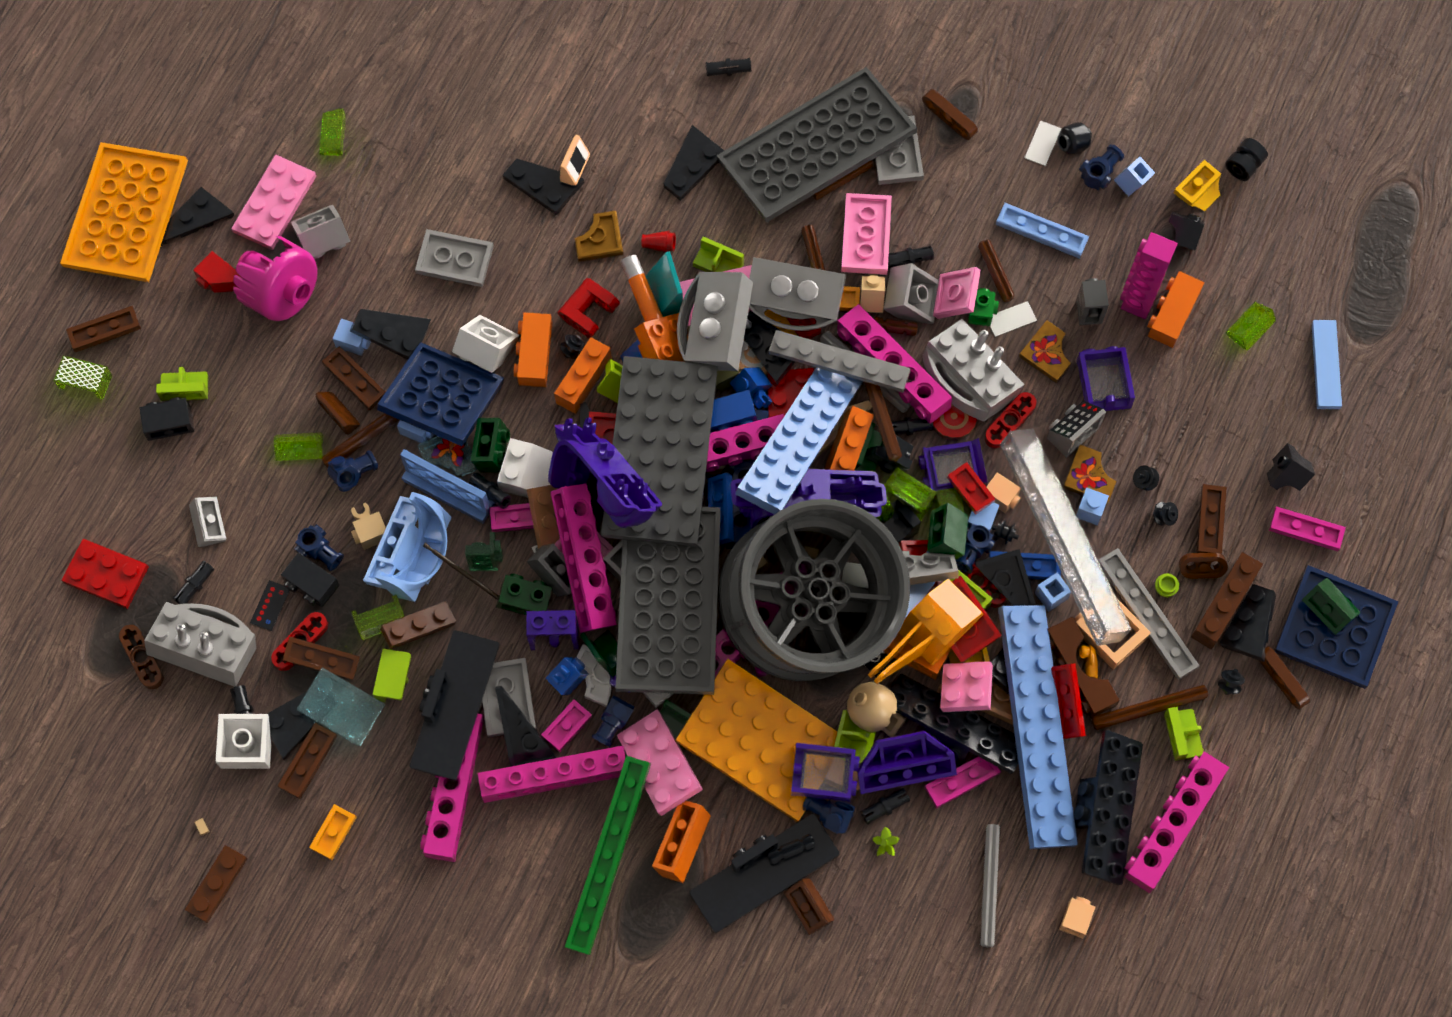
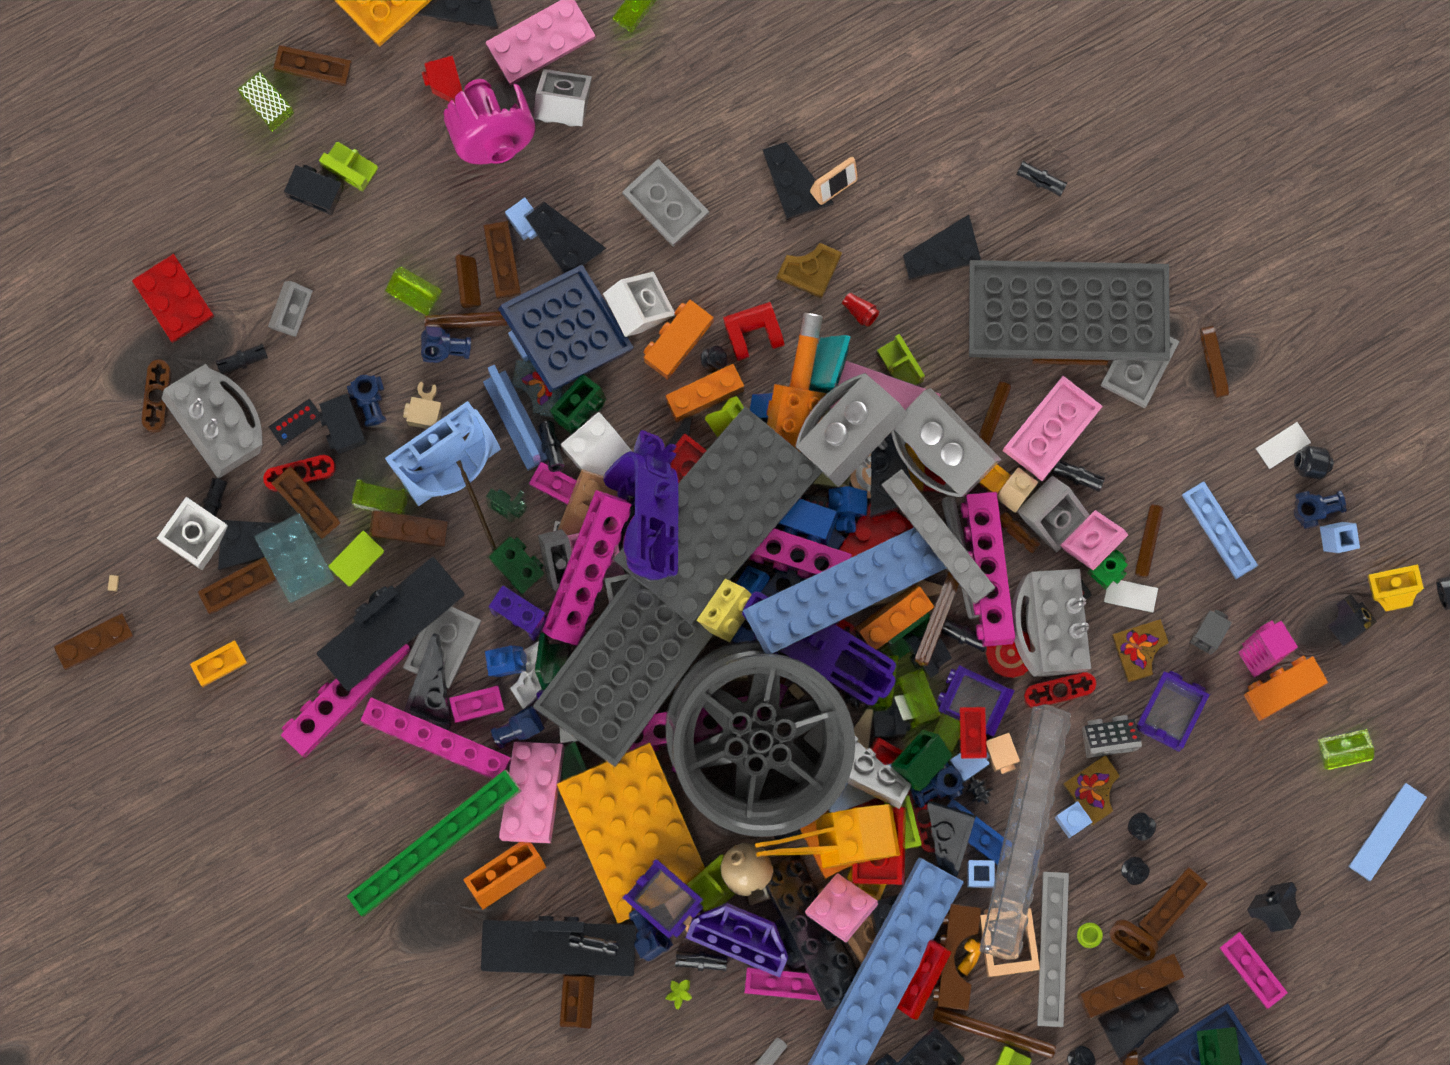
camera: 35 degrees right, 10 degrees up
(718, 514) = (724, 610): none -> light yellow brick

